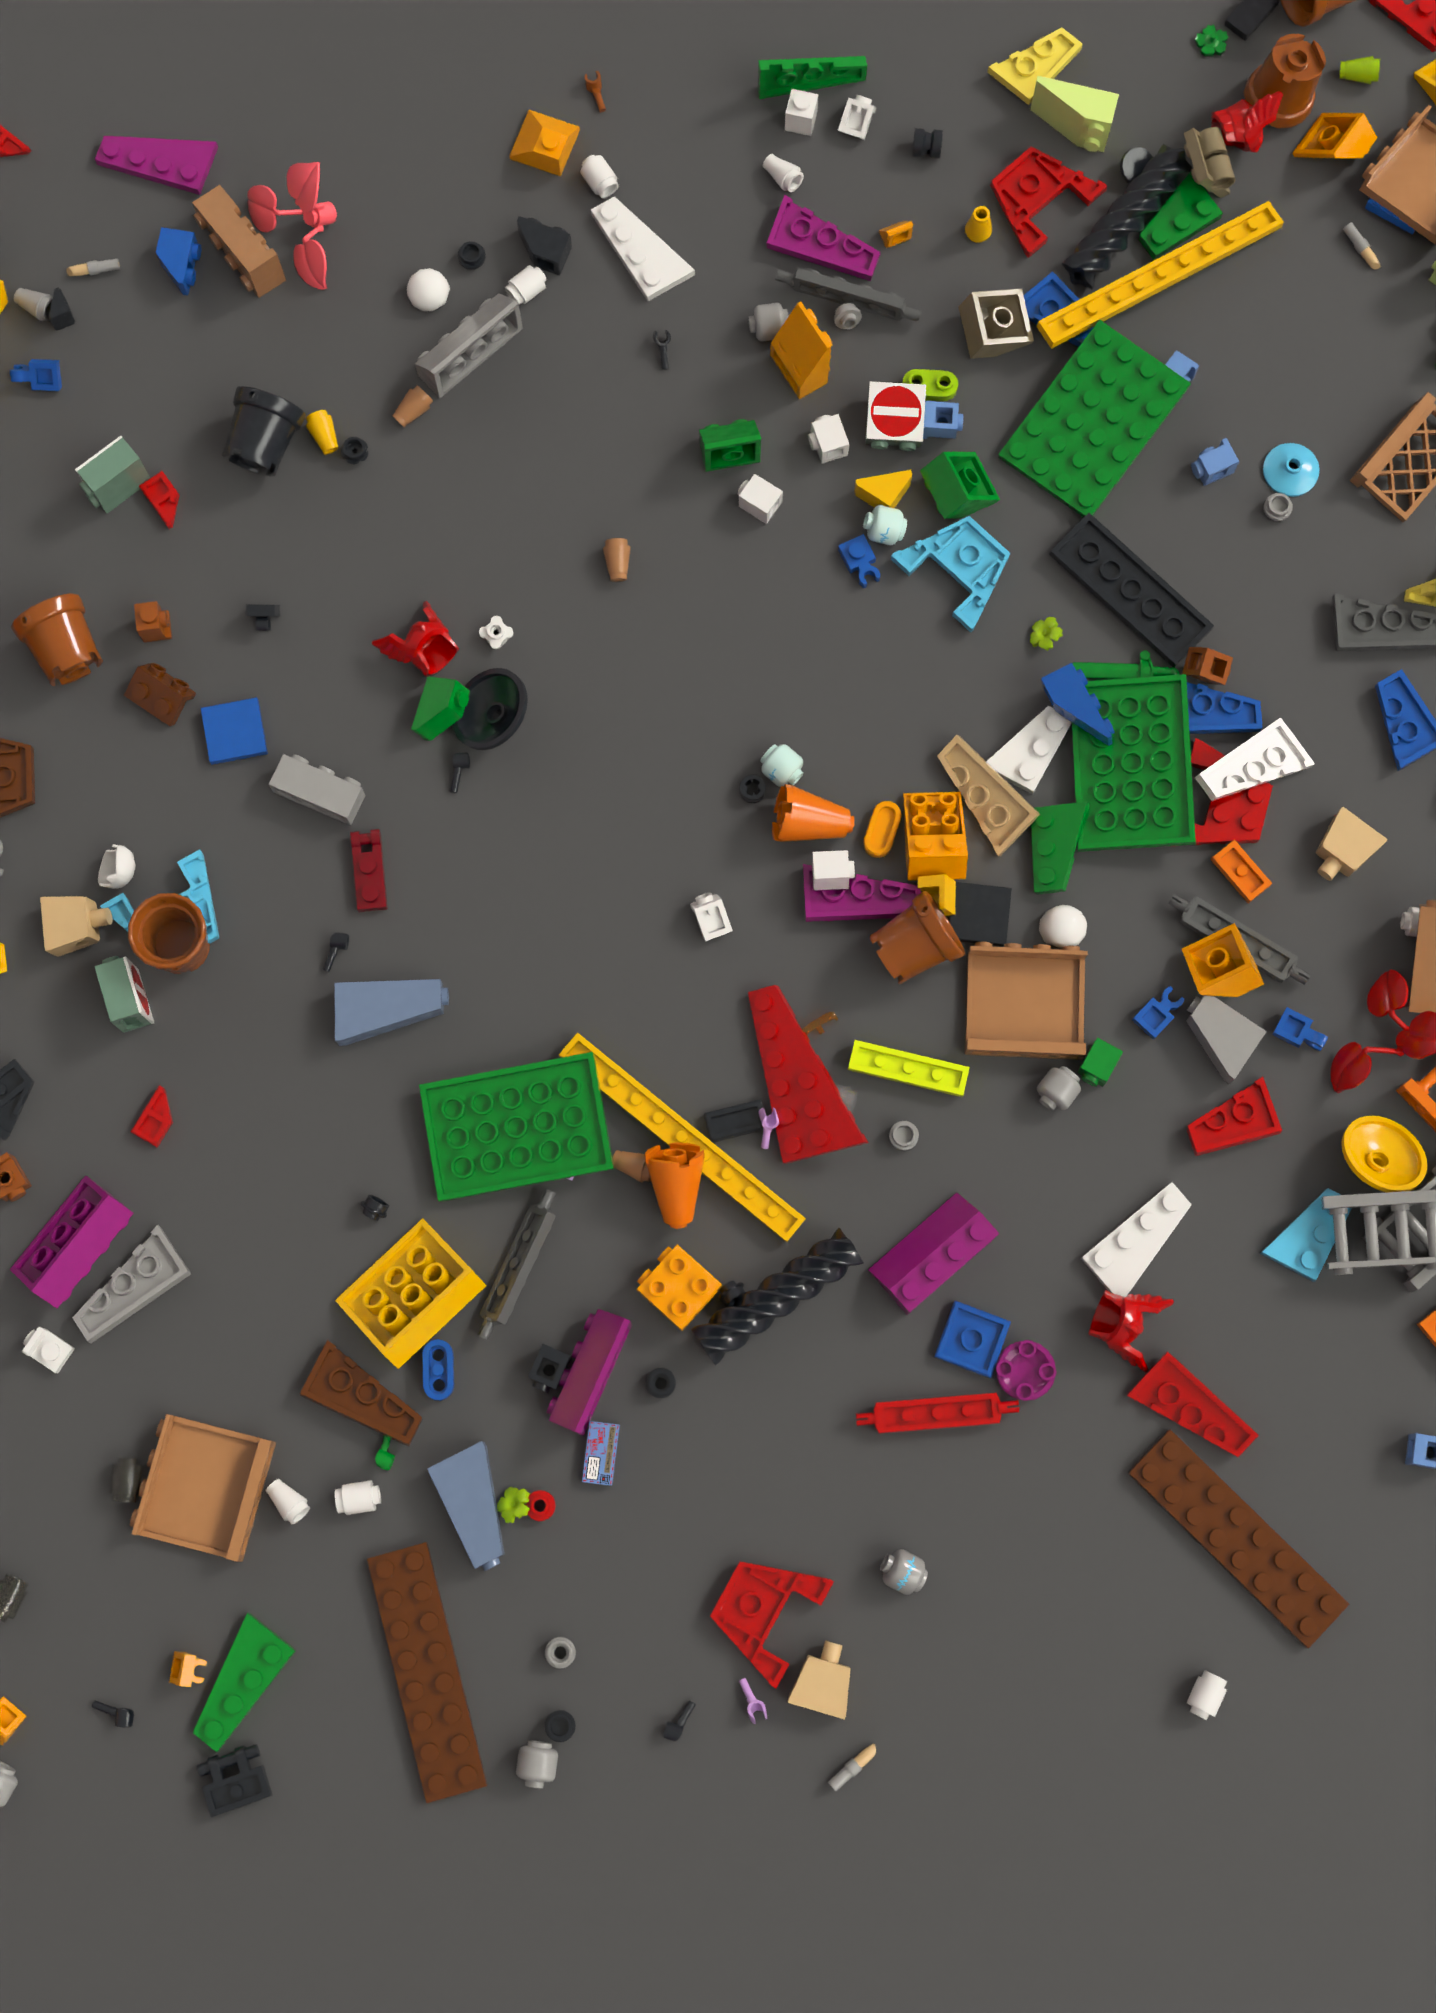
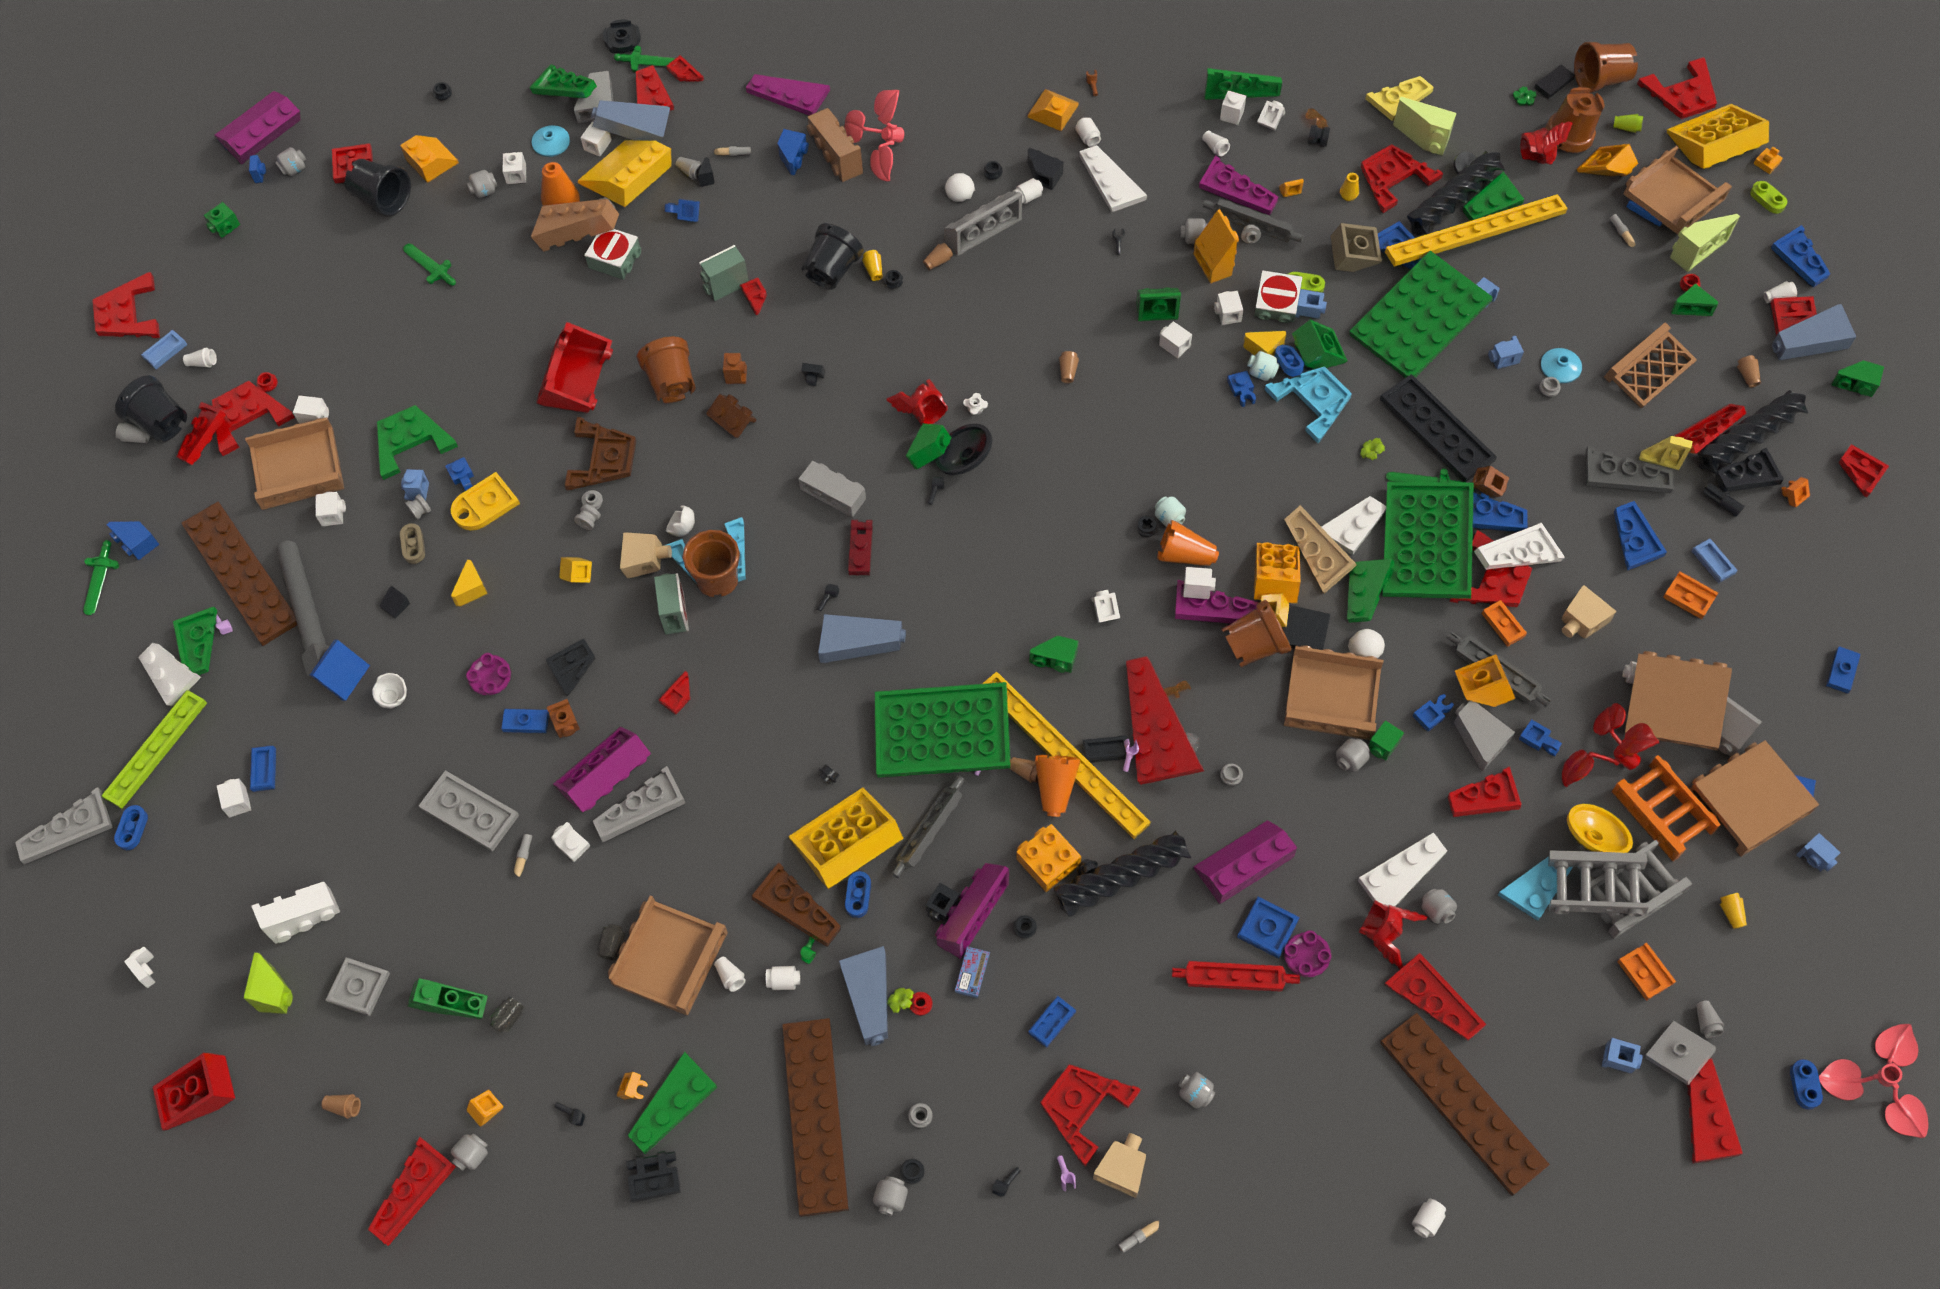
camera: 10 degrees right, 15 degrees down
(234, 731) = (779, 446): blue tile -> none
(653, 994) = (1055, 653): none -> green slope
(711, 1506) = (1052, 1021): none -> blue plate
(882, 829) = (1238, 564): light orange tile -> none
(908, 1068) = (1240, 727): neon yellow plate -> none
(924, 516) = (1289, 360): none -> blue plate
(929, 119) = (1321, 121): none -> clear orange piece
(1071, 700) = (1388, 492): blue slope -> none
(1187, 1283) = (1439, 906): none -> light grey head
(1209, 160) = (1517, 163): dark tan plate -> none

